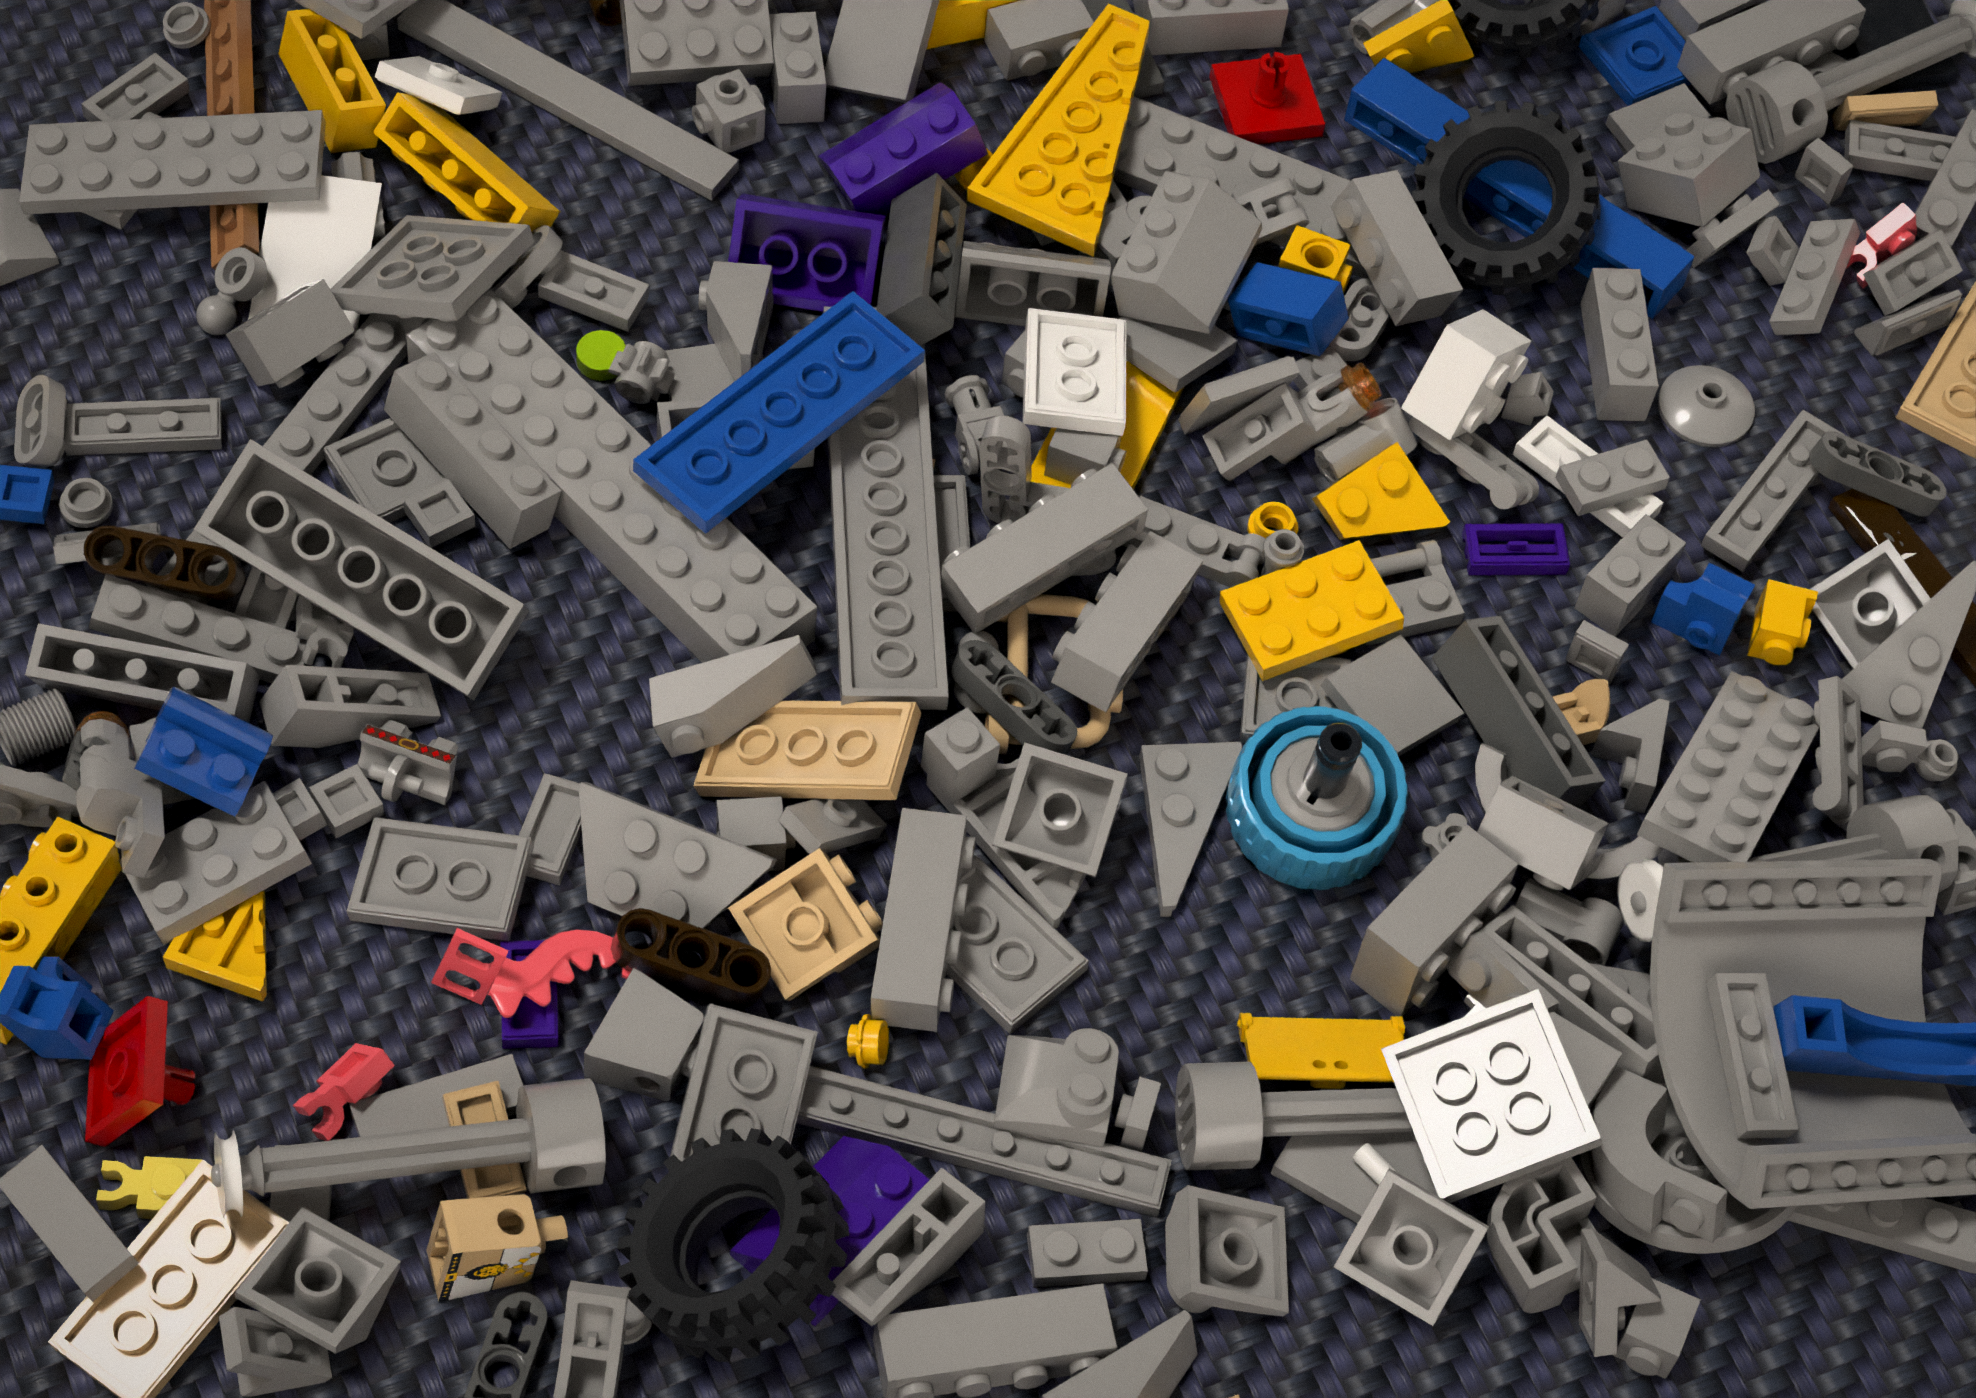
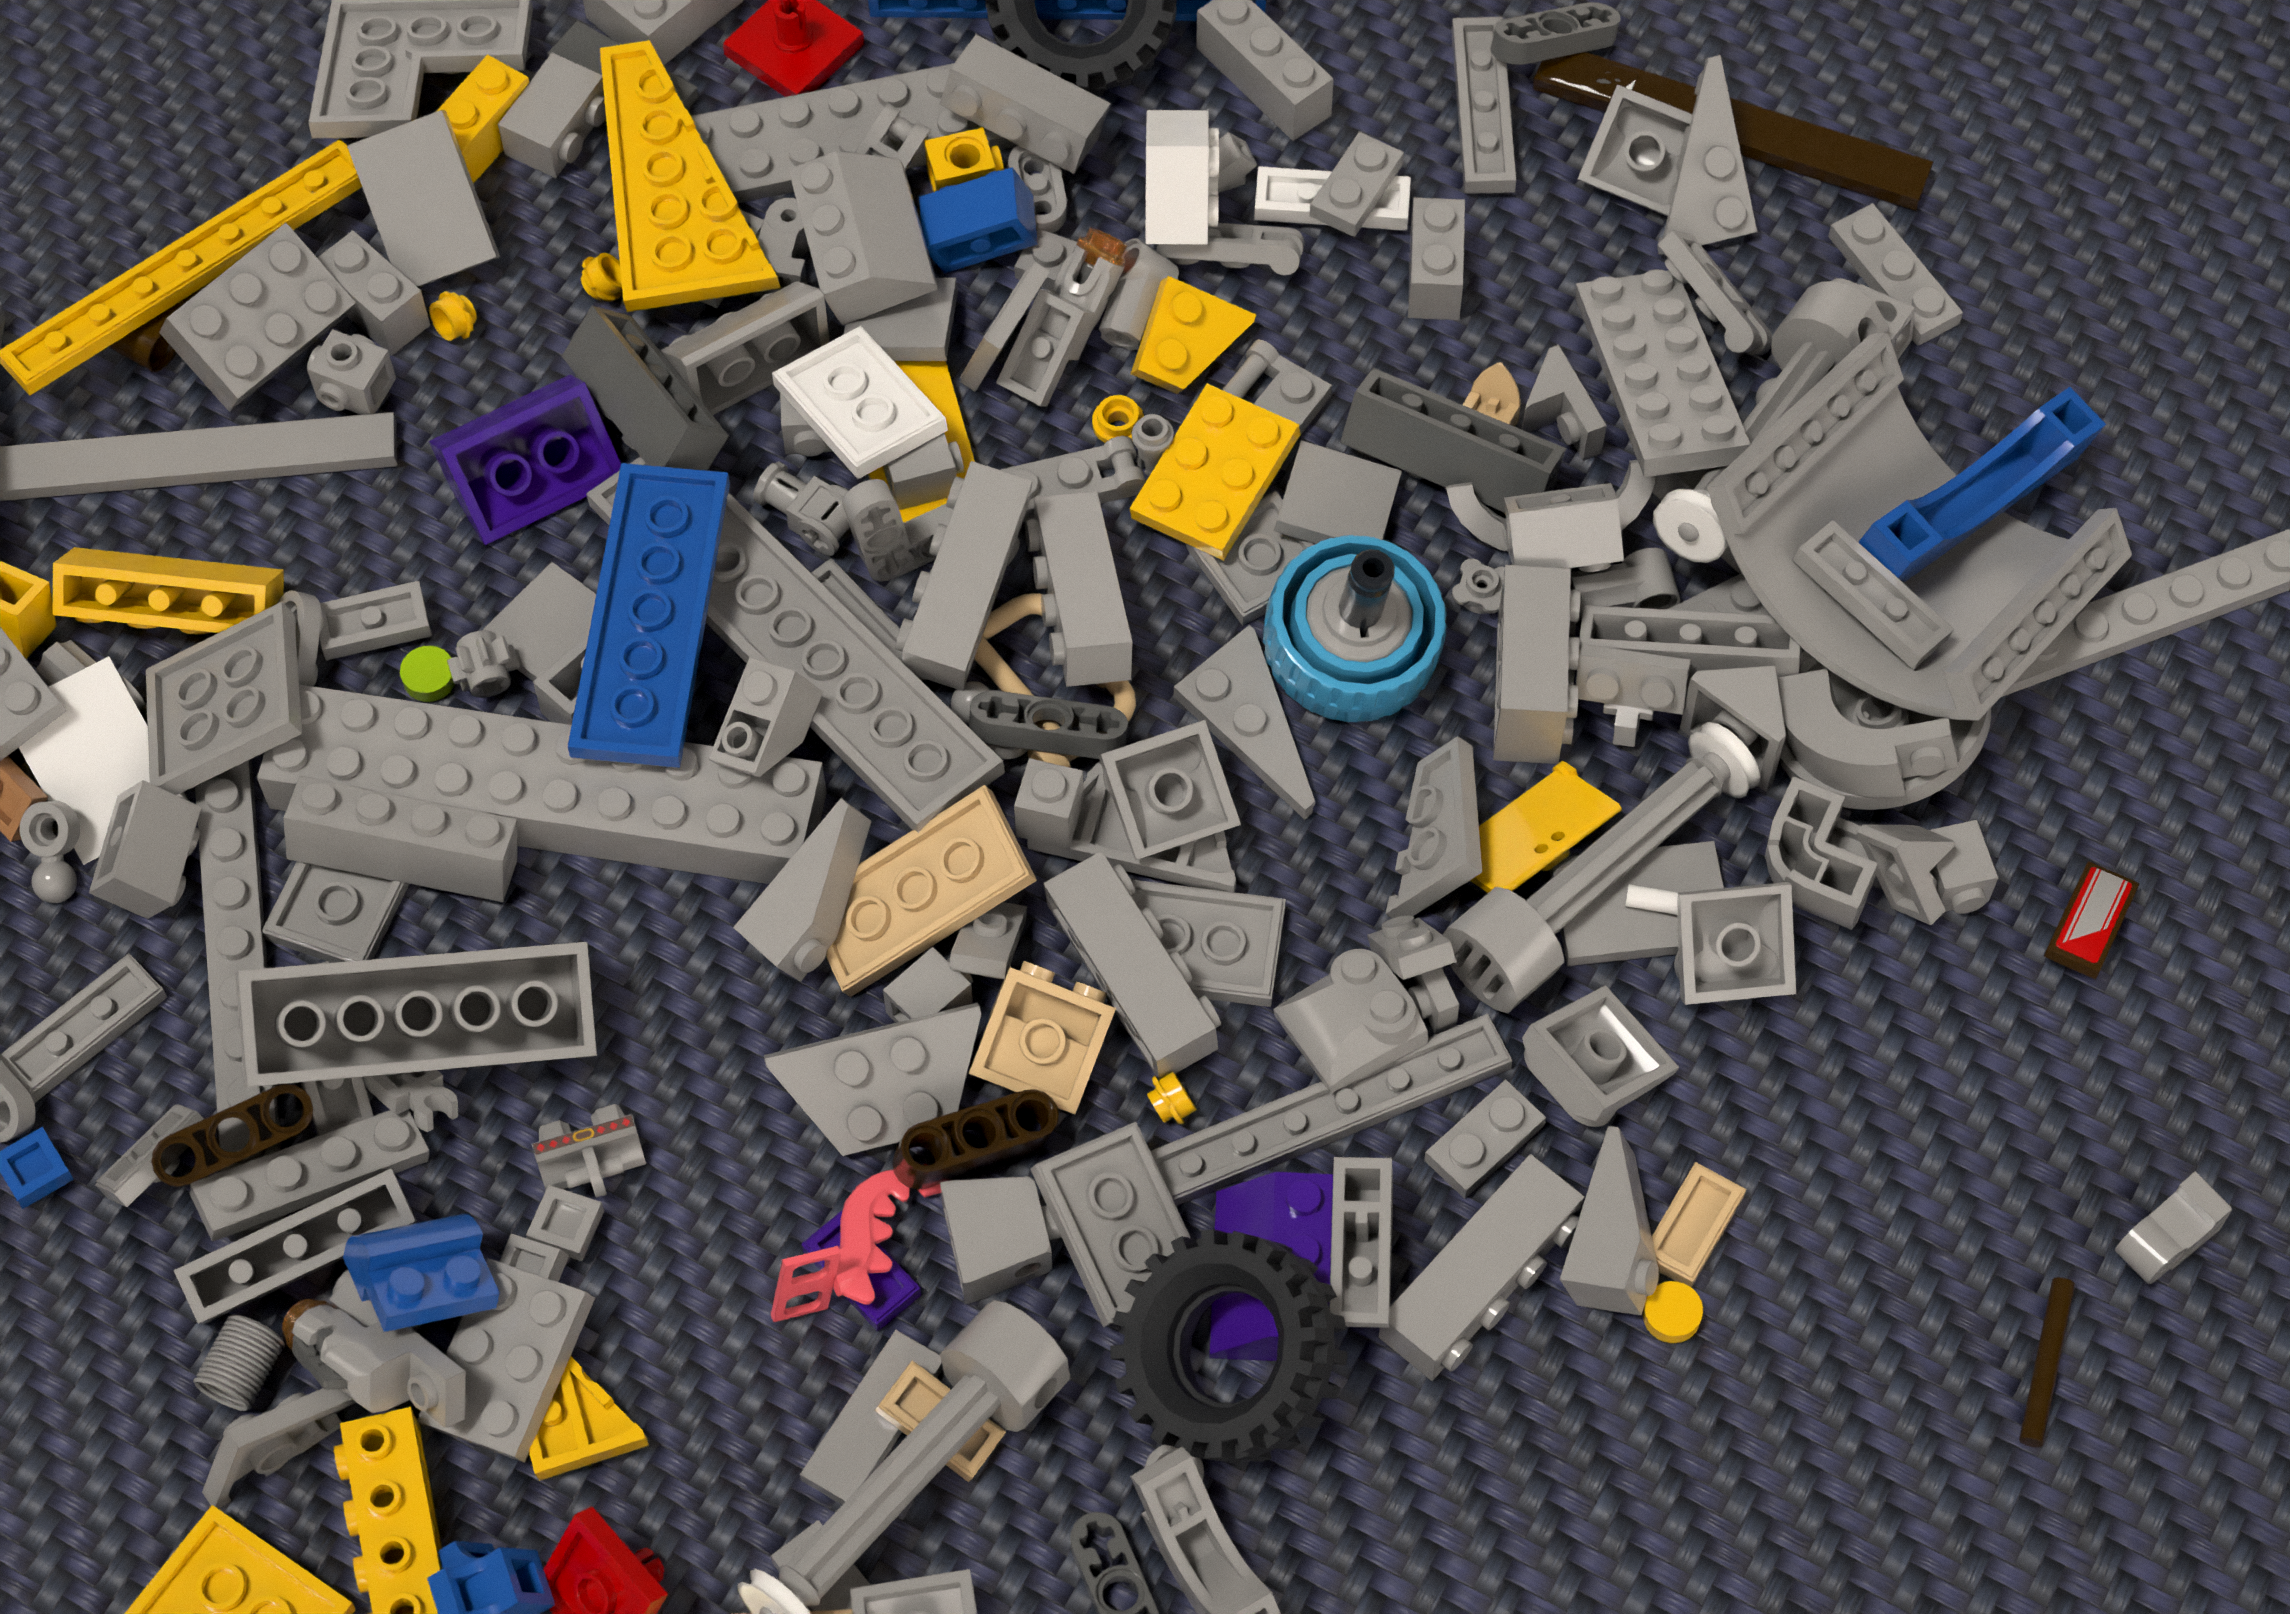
camera: 30 degrees left, 5 degrees up
(85, 503) = (96, 1134): light grey plate -> none
(335, 704) = (490, 1141): light grey slope -> none
(349, 1079) = (782, 1454): coral plate -> none
(438, 85) = (70, 530): white plate -> none
(439, 513) = (417, 915): light grey plate -> none
(440, 878) = (704, 1229): light grey tile -> none
(489, 1244) = (1023, 1500): tan torso -> none
(554, 828) = (755, 1117): light grey tile -> none
(738, 311) = (524, 555): light grey slope -> none
(797, 542) = (765, 718): none -> light grey slope
(841, 121) = (452, 316): none -> yellow plate
(904, 149) = (535, 304): dark purple slope -> none
(1148, 1061) = (1411, 946): none -> light grey plate
(1264, 989) = (1444, 833): none -> light grey wing
(1491, 1097) = (1707, 776): plate -> none
(1517, 555) = (1309, 333): dark purple tile -> none
(1596, 652) = (1462, 343): light grey tile -> none
(1704, 609) = (1518, 244): blue brick -> none
(1705, 420) = (1373, 82): light grey dish -> none
(1781, 622) = (1581, 215): yellow brick -> none
(1896, 746) = (1752, 256): light grey plate -> none

